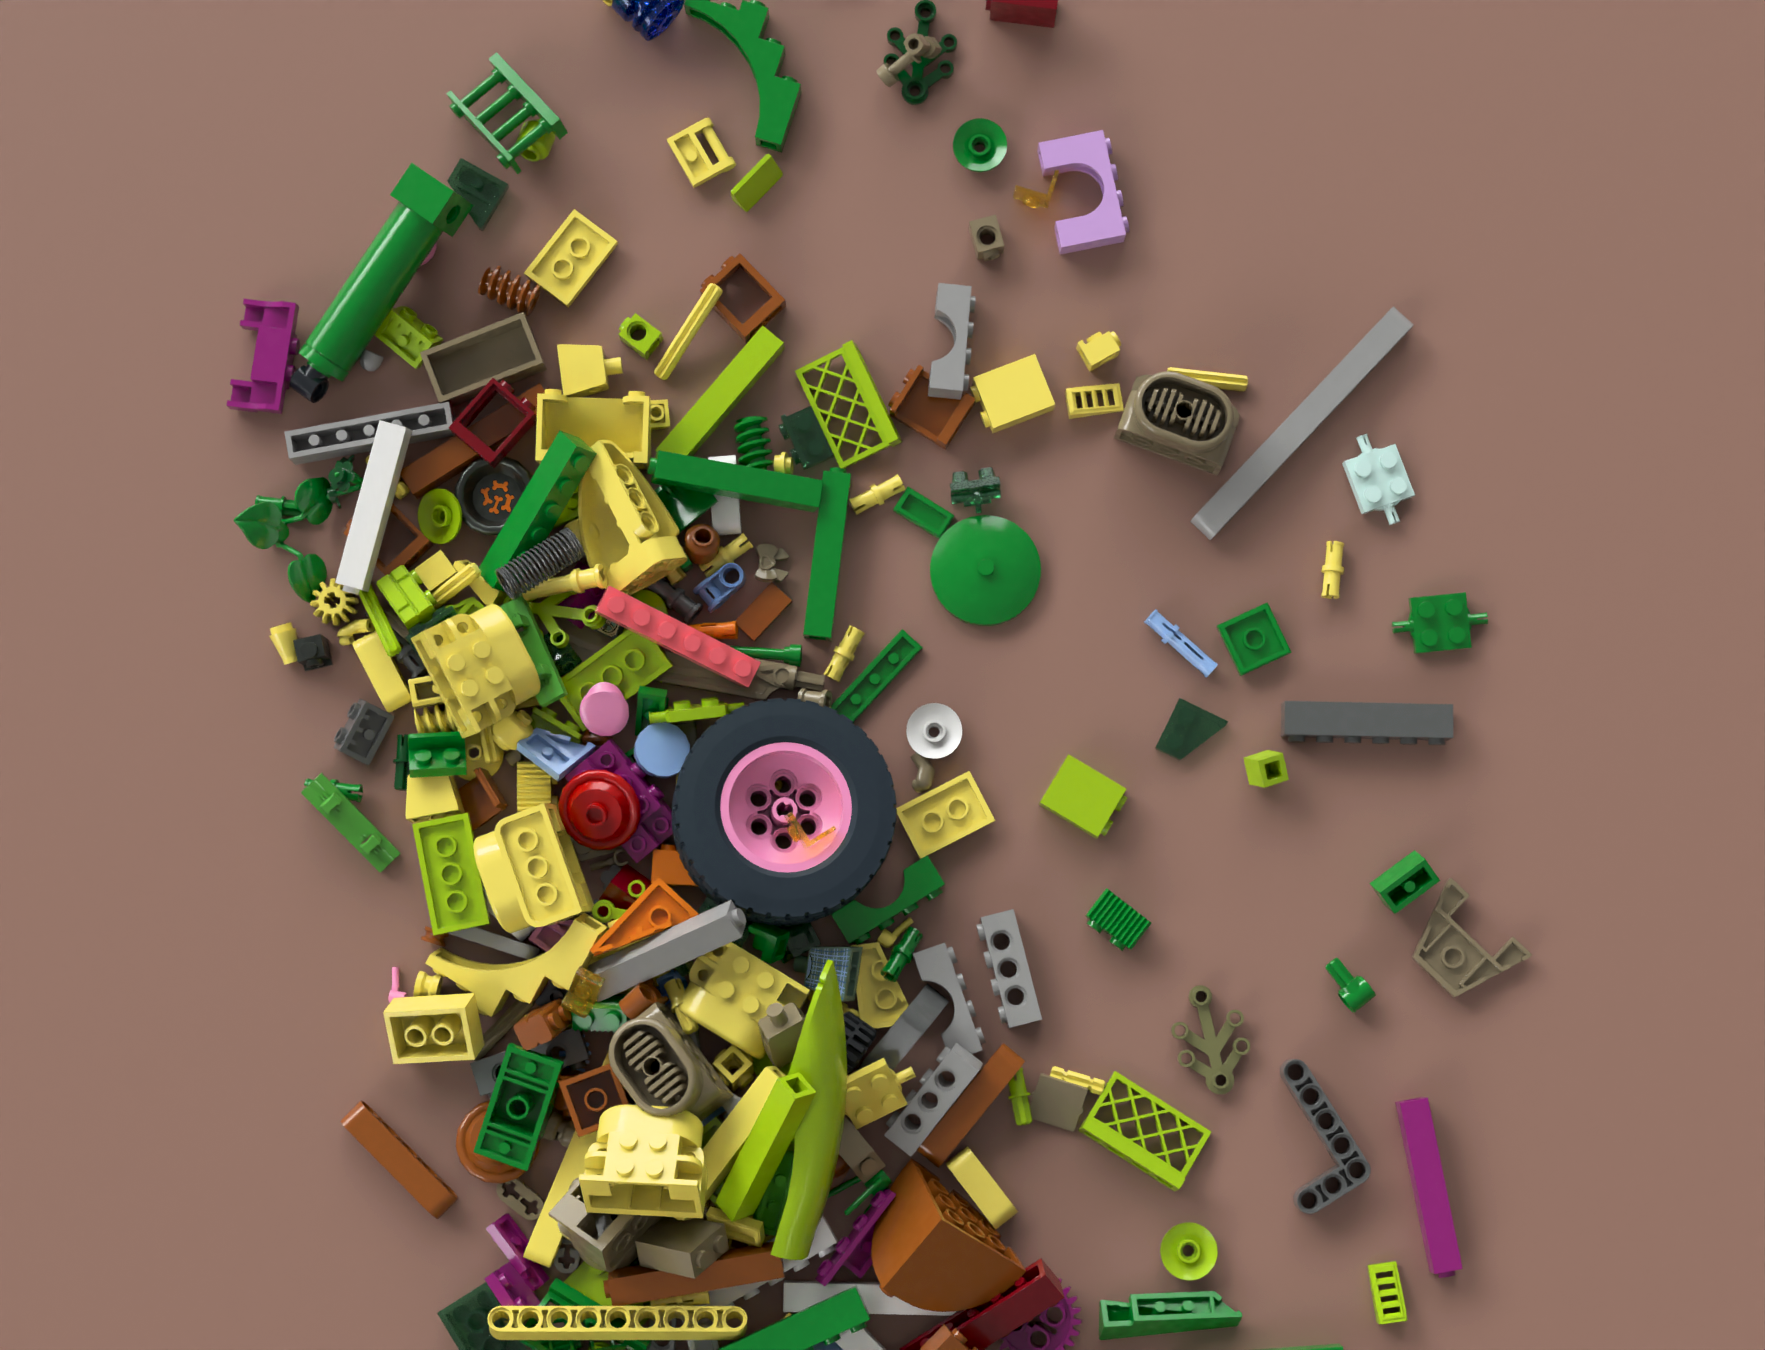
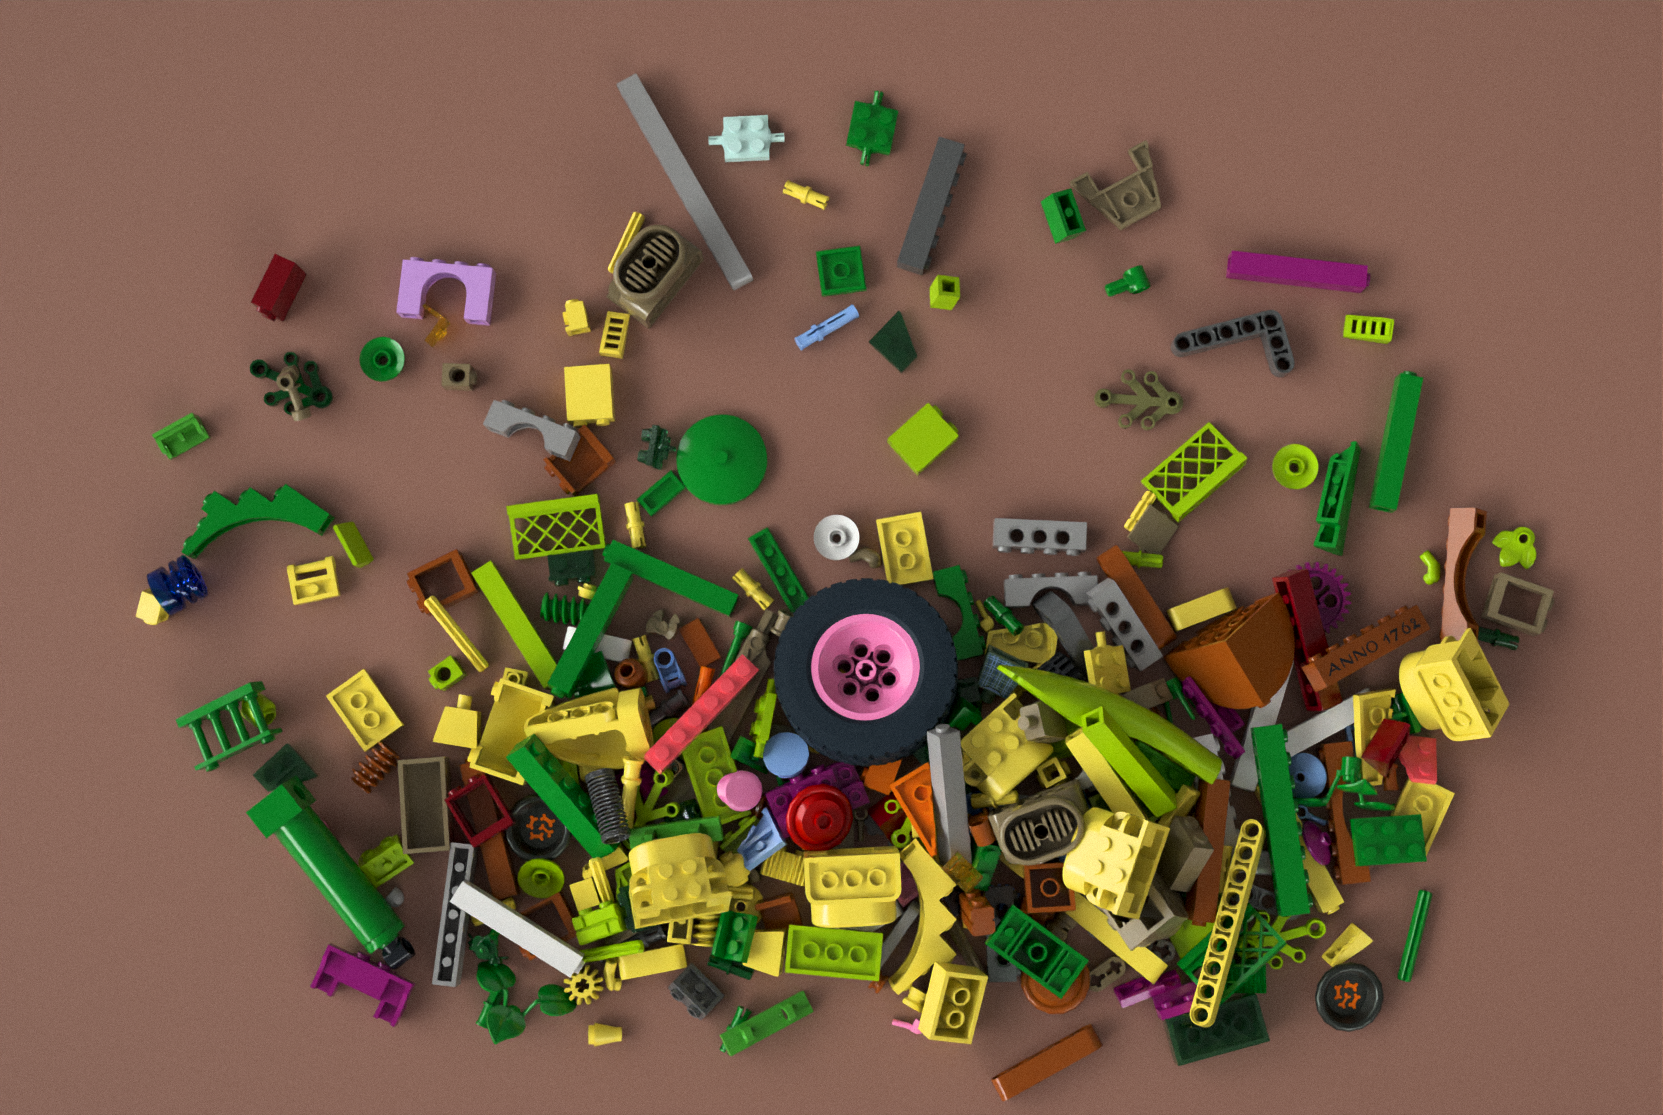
camera: 70 degrees left, 0 degrees up
(313, 652) = (619, 1014): pearl dark grey brick -> none
(798, 834) = (889, 663): clear yellow bracket -> none
(1117, 920) = (1026, 442): green brick -> none

